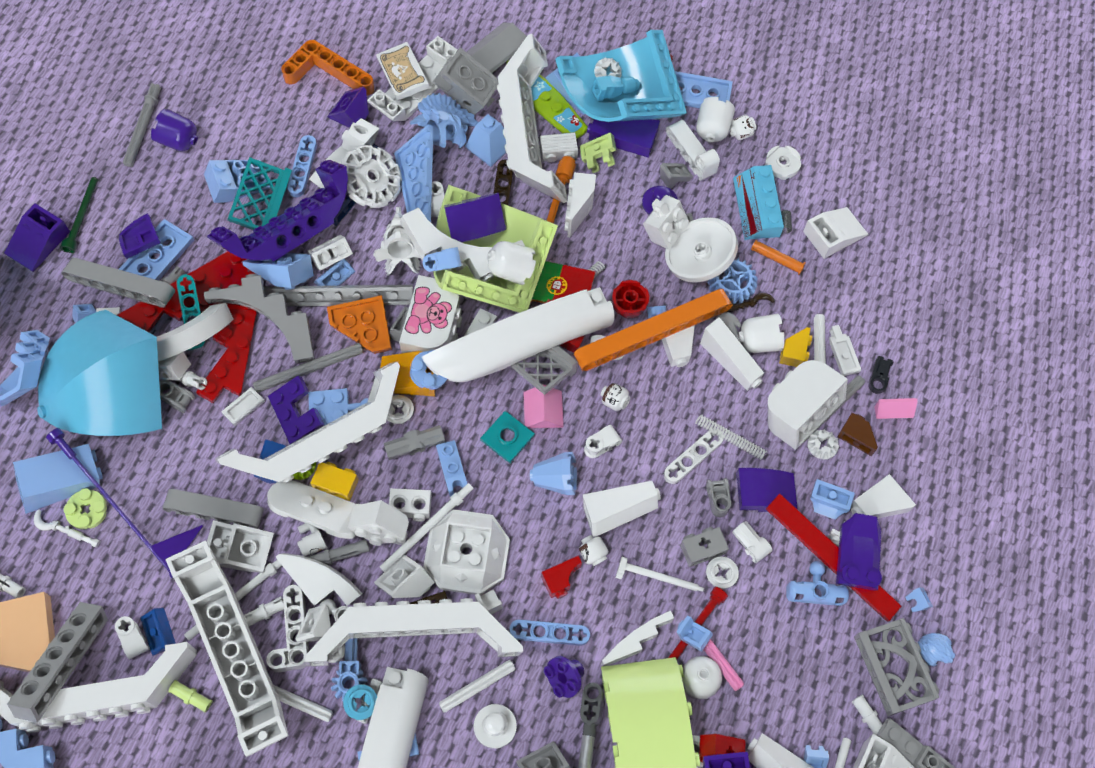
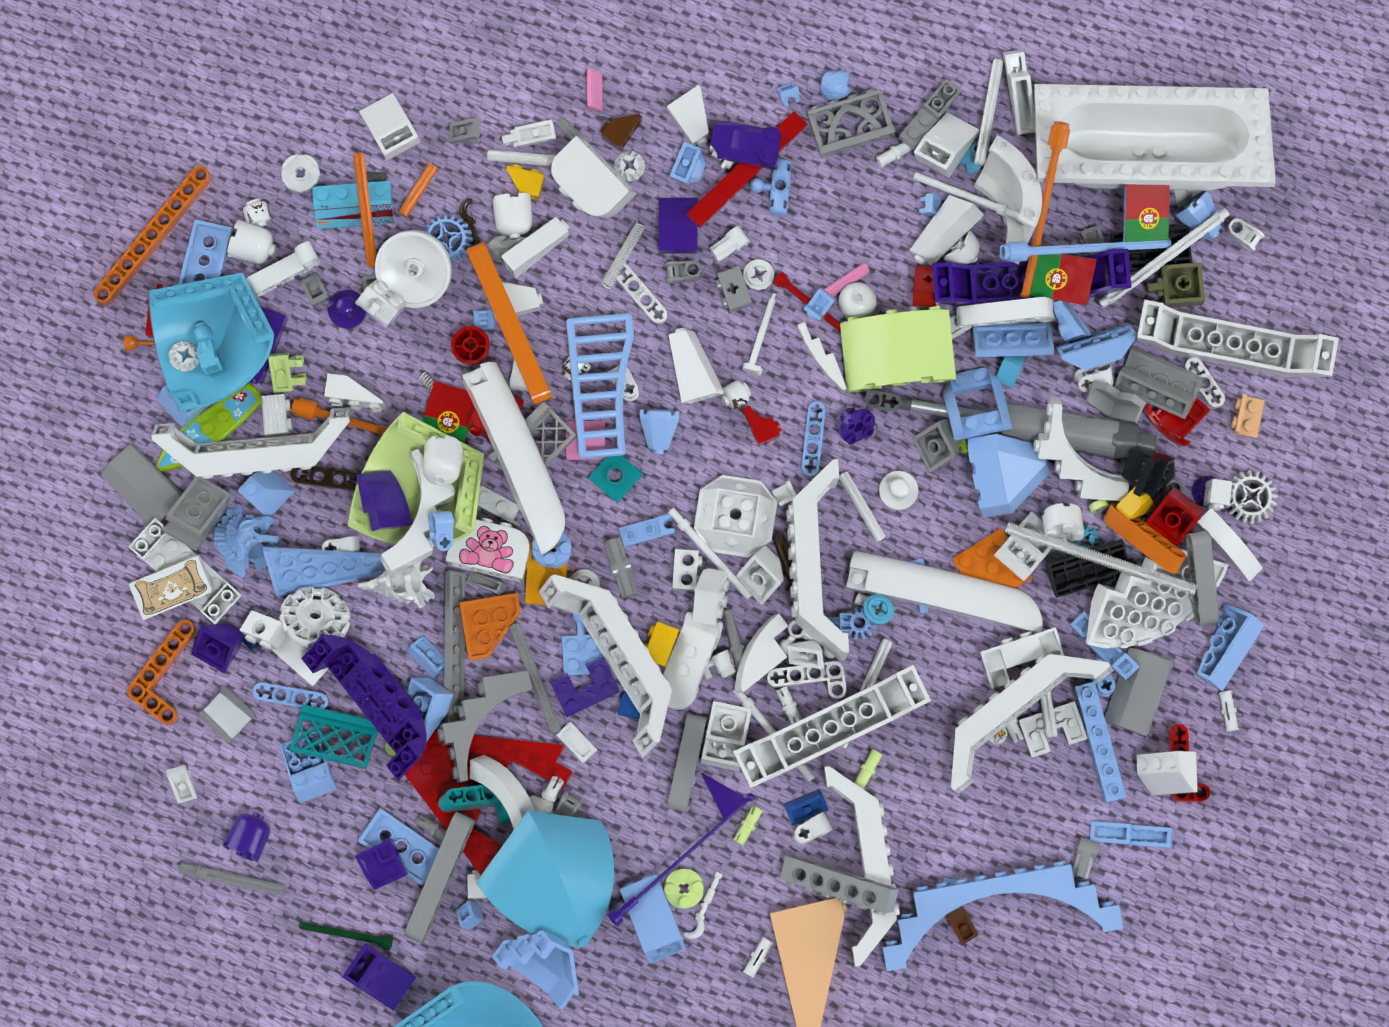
camera: 80 degrees left, 15 degrees up
(142, 571) = (747, 825): none -> yellowish green pin
(229, 84) = (181, 783): none -> white slope
(289, 117) = (227, 715): none -> slope
(330, 252) = (405, 659): white brick -> none
(606, 432) = (619, 375): none -> light blue bar
(619, 39) = (131, 343): none -> orange hinge
(716, 52) = (151, 245): none -> orange beam
(760, 204) = (365, 208): none -> orange axle
(839, 295) = (465, 131): none -> light grey slope
(880, 373) = (554, 100): black piece -> none

